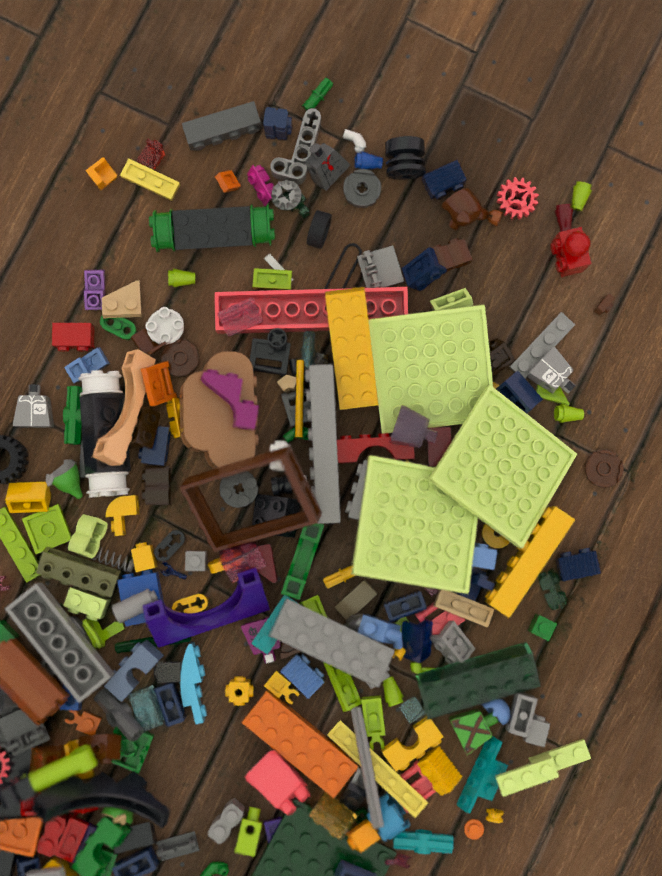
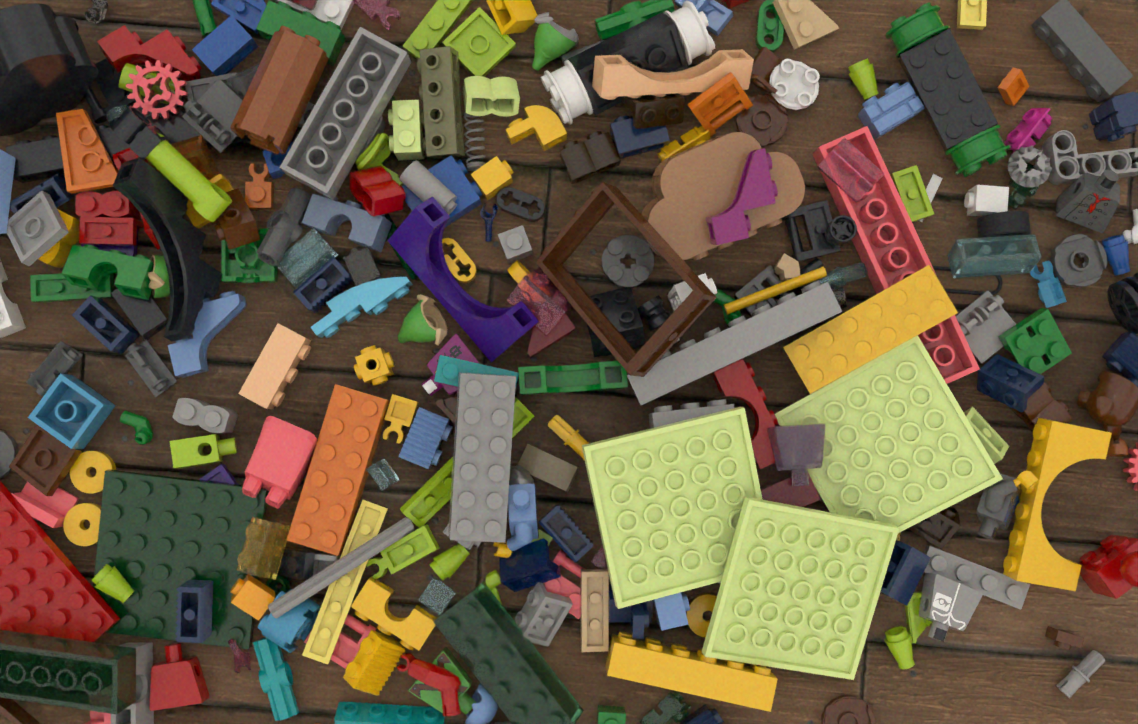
camera: 65 degrees right, 0 degrees up
(121, 641) = (377, 190): none -> red brick
(181, 815) = (190, 354): none -> medium blue arch
(209, 269) = (890, 110): none -> medium blue brick
(213, 758) = (275, 367): none -> light nougat brick
(224, 645) = (423, 323): none -> hat
(297, 232) = (986, 200): none -> white brick
(315, 714) = (383, 474): none -> clear light blue tile
(336, 243) = (994, 256): none -> clear light blue brick
(372, 215) = (1050, 289): none -> dark azure plate
(405, 244) = (1030, 346): none -> green brick
(466, 731) = (436, 677): none -> red arm
(479, 260) = (1029, 553): none -> yellow arch
(499, 309) = (1000, 502): none -> dark grey torso
(631, 303) = (1081, 673): none -> light grey axle

